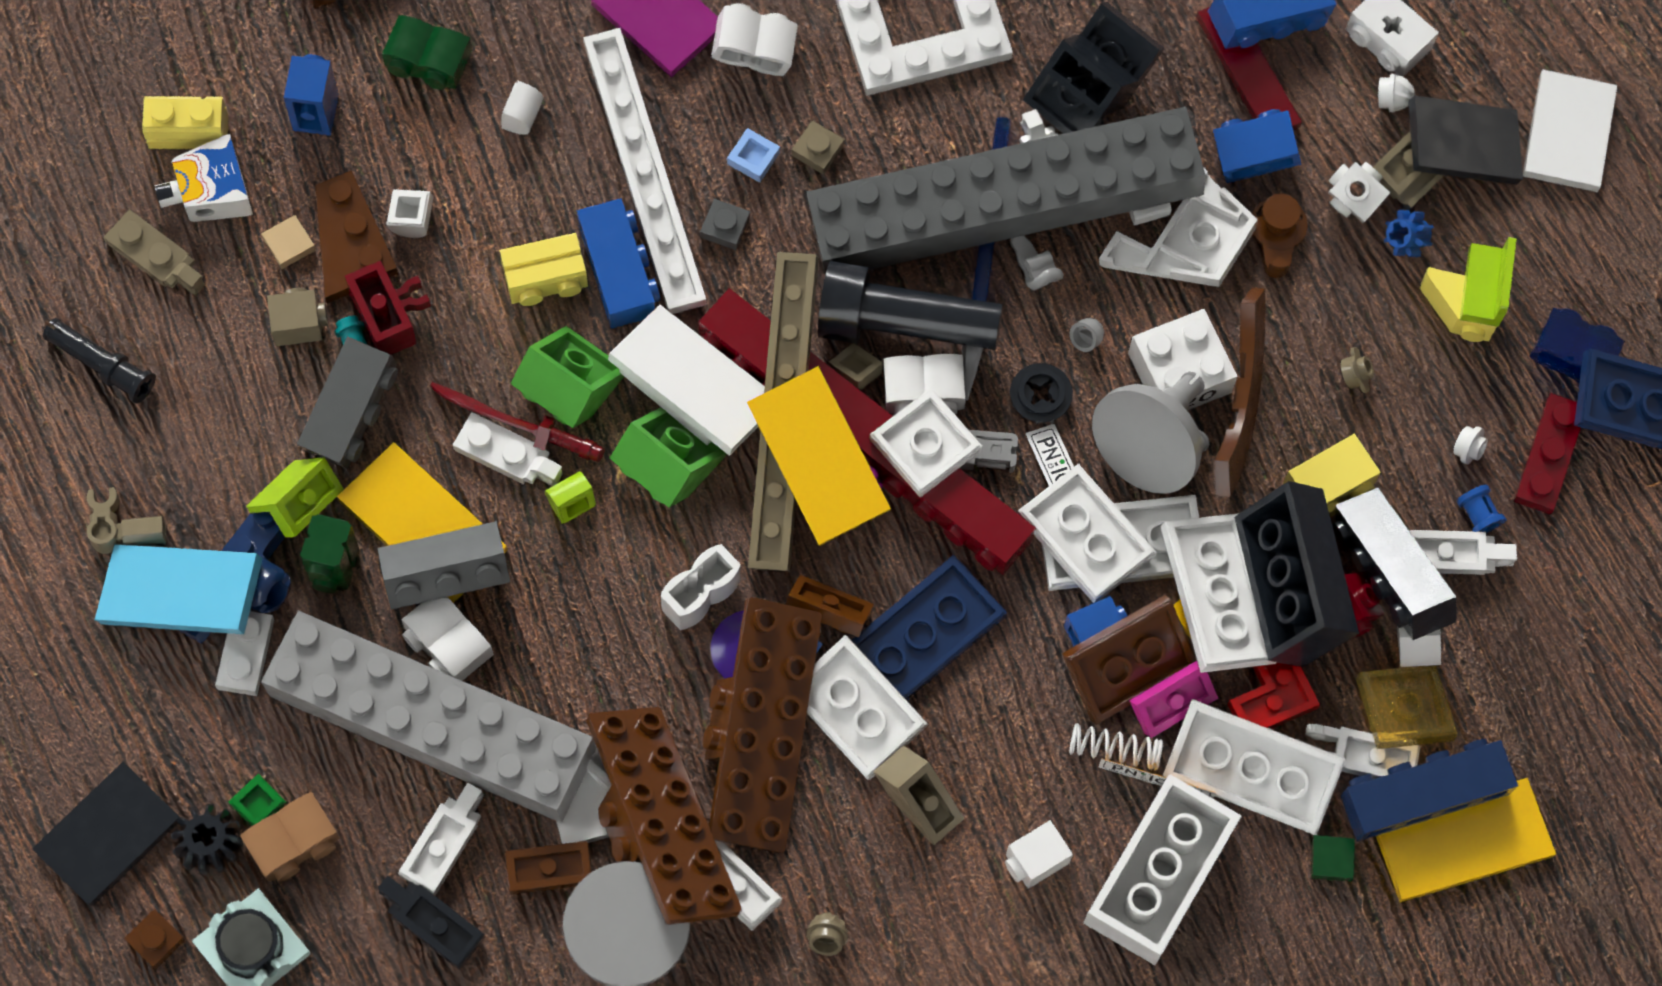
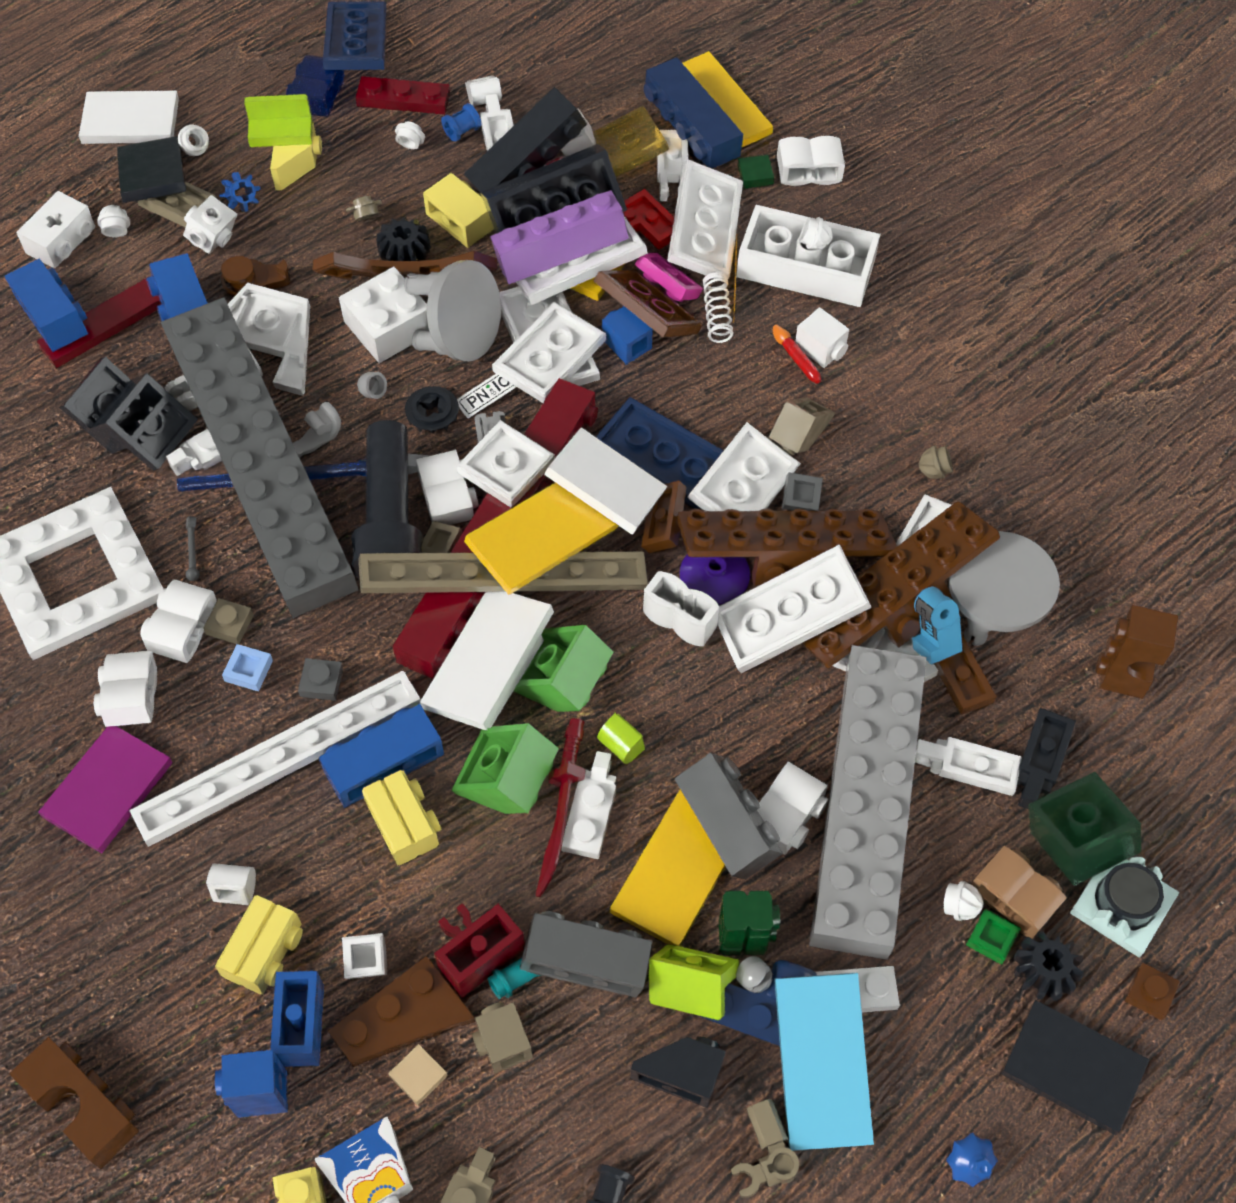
camera: 100 degrees left, 10 degrees down
(50, 702) = (972, 1160): none -> blue piece
(214, 468) = (682, 1069): none -> black slope
(277, 548) = (754, 974): none -> light grey hinge
(298, 777) = (962, 901): none -> white plate
(329, 918) = (1085, 828): none -> clear green brick
(363, 141) = (297, 1018): none -> blue brick
(426, 52) = (180, 990): dark green brick -> none
(449, 124) = (260, 945): none -> light yellow brick
(594, 838) = (938, 625): none -> dark azure leg
(668, 700) = (791, 609): none -> white tile
(823, 765) = (802, 492): none -> dark grey plate
(824, 97) = (178, 621): none -> white brick
(870, 538) = (605, 480): none -> white tile
(885, 121) = (192, 573): none -> dark grey hinge
(1026, 824) = (803, 362): none -> red piece
(1164, 865) = (815, 233): none -> white plate
(1233, 567) = (560, 237): none -> medium lavender brick
(1284, 416) = (403, 241): none -> black gear
(1330, 928) = (810, 160): none -> white brick
(1500, 197) = (200, 136): none -> white plate
(1535, 549) = (483, 86): none -> white brick

